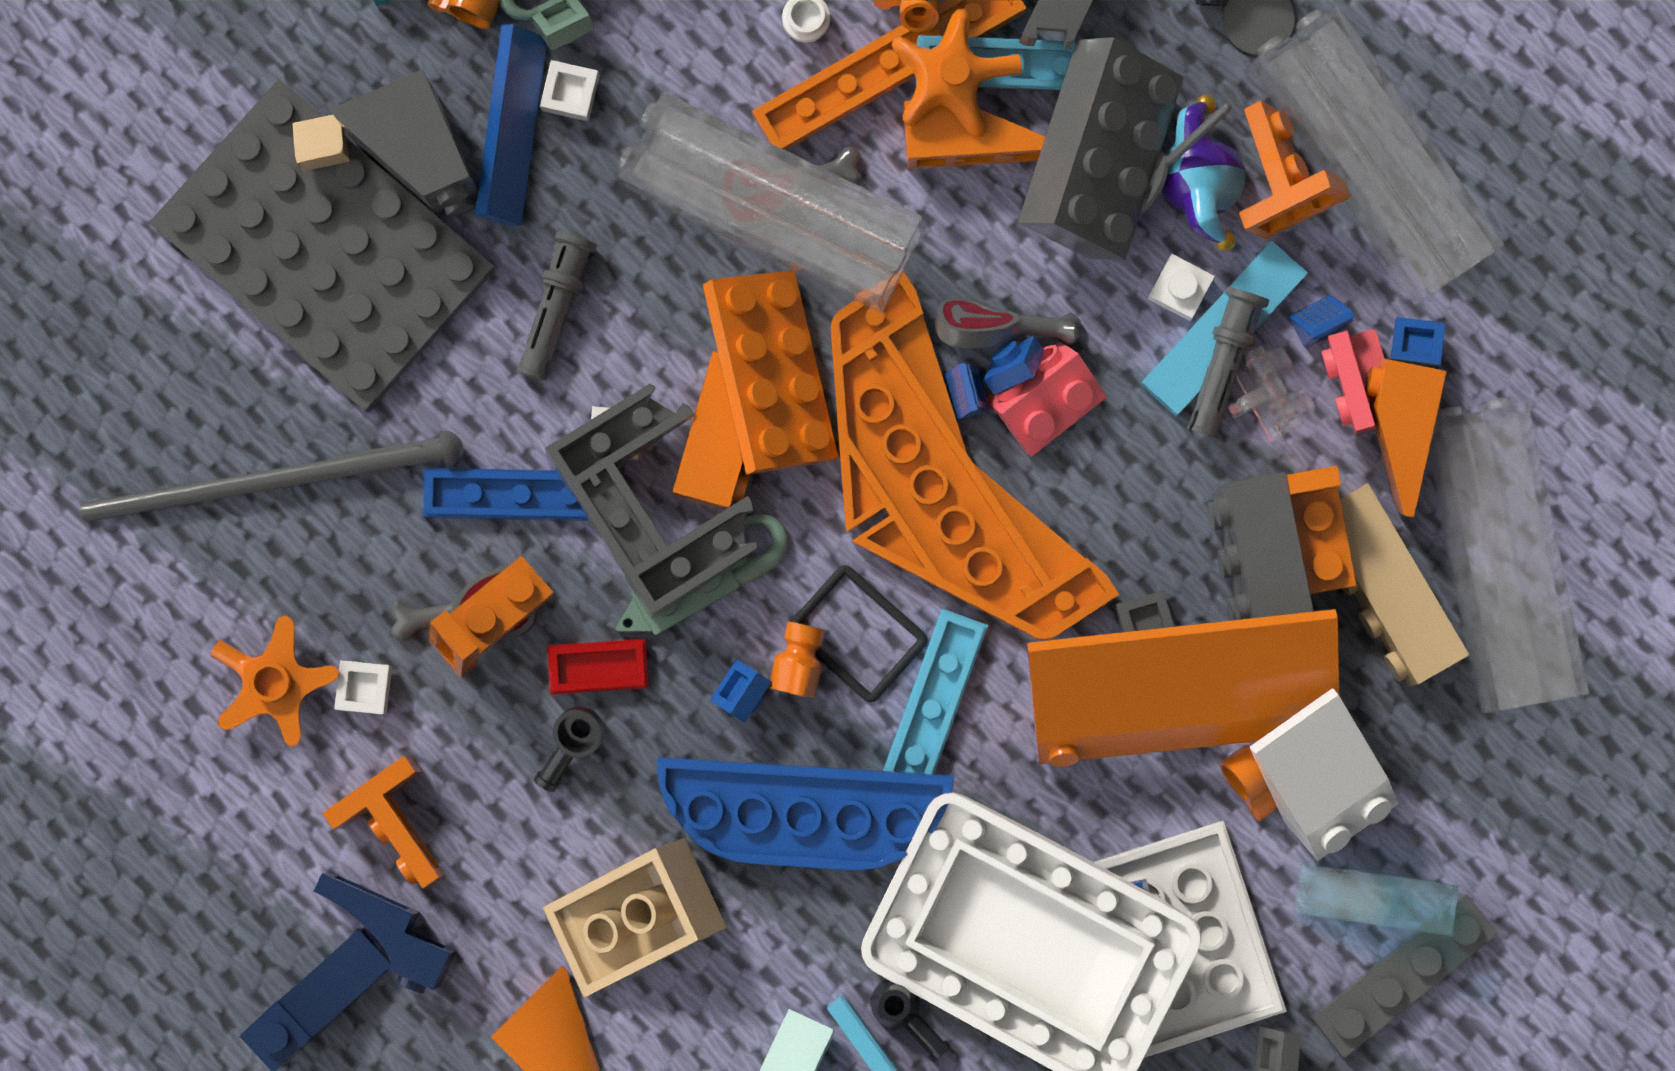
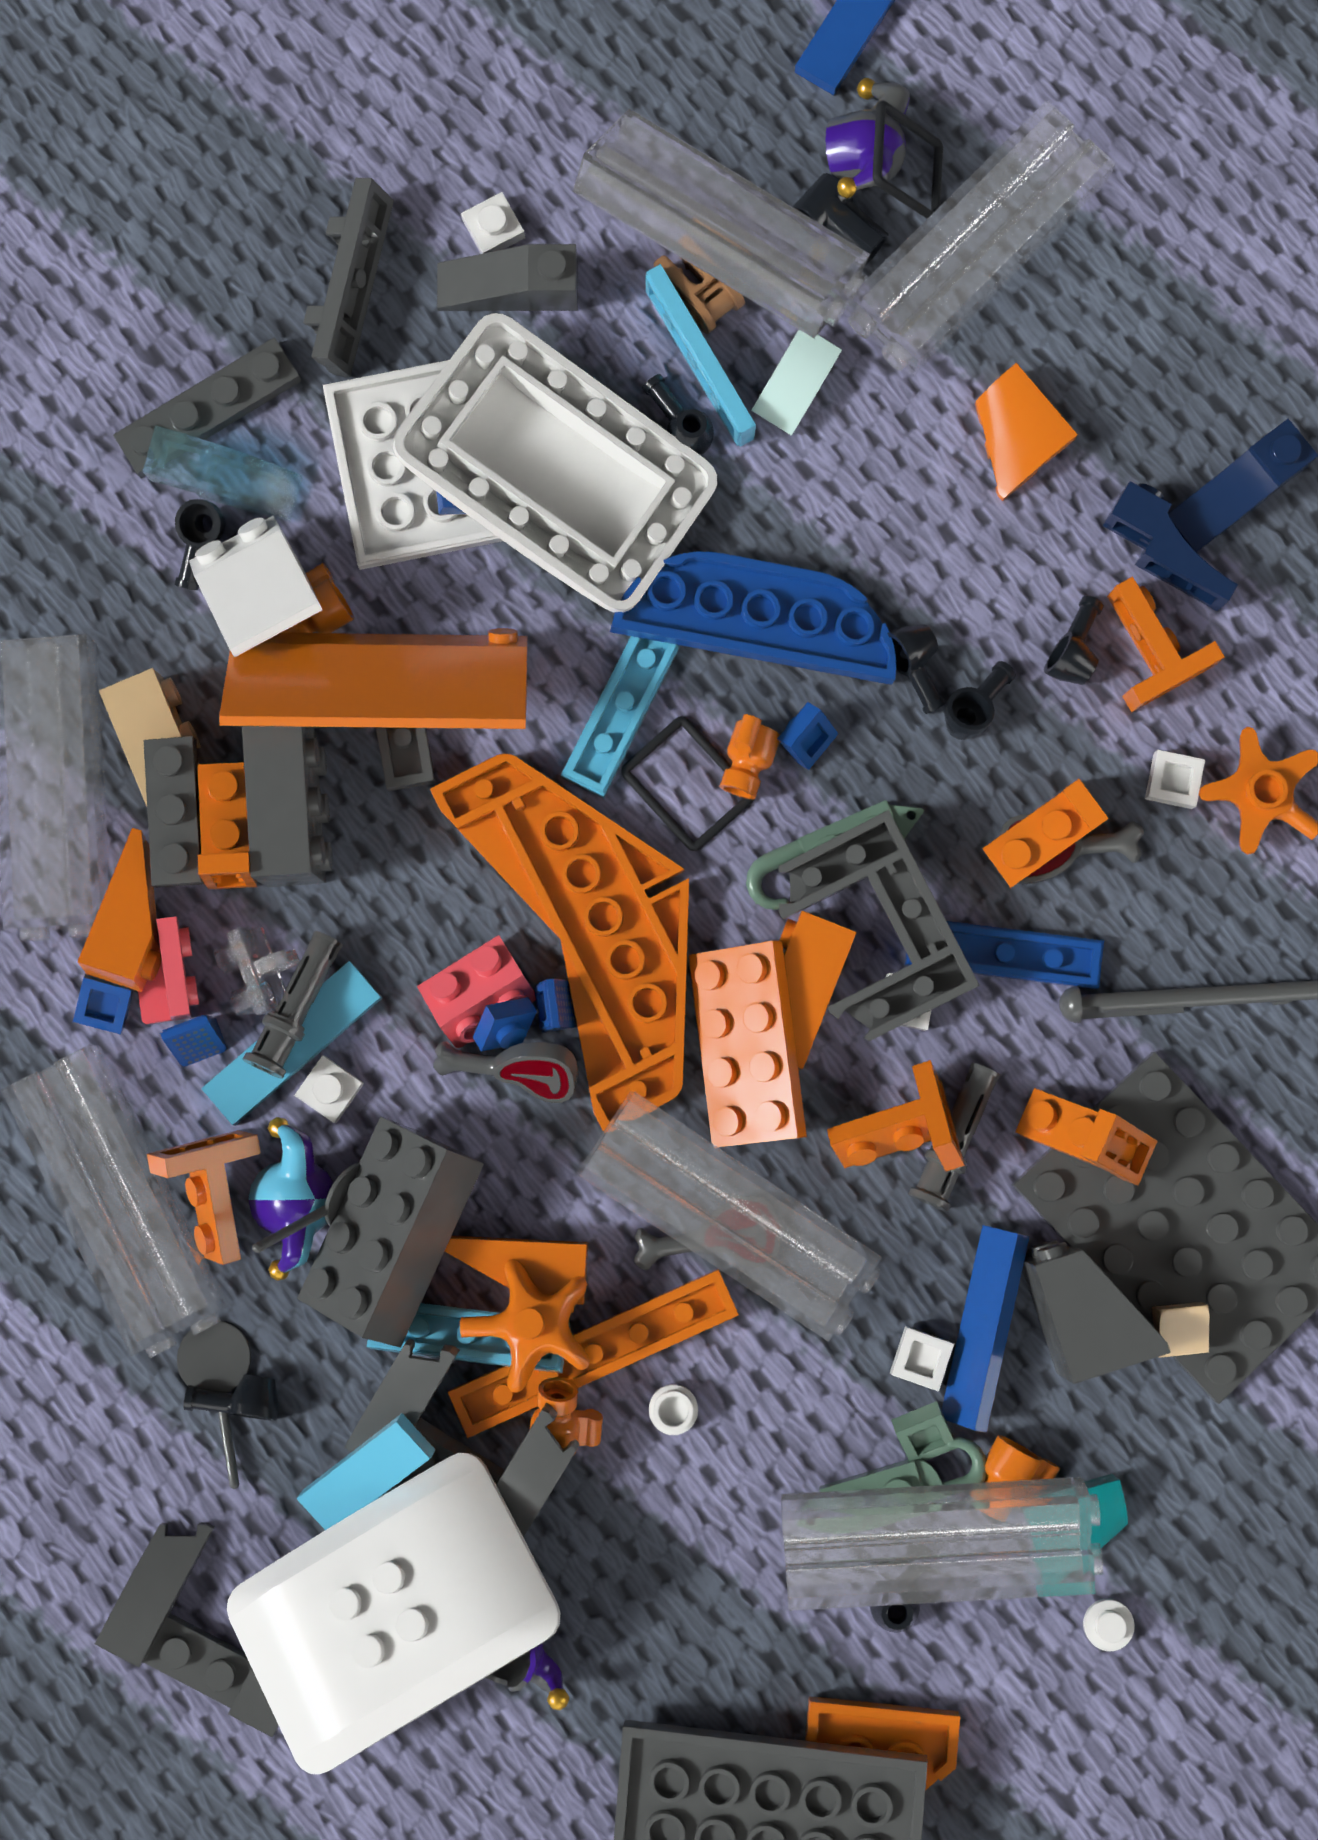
camera: 175 degrees left, 0 degrees up
(425, 315) = (1087, 1135): none -> orange bracket
(470, 800) = (1072, 658): none -> black bar
(598, 666) = (944, 777): red tile -> none
(605, 306) = (902, 1127): none -> orange bracket
(634, 916) = (928, 533): tan slope -> none
(637, 795) = (919, 646): none -> black bar
(1374, 537) = (173, 810): none -> dark grey plate
(1394, 833) = (191, 531): none -> black bar

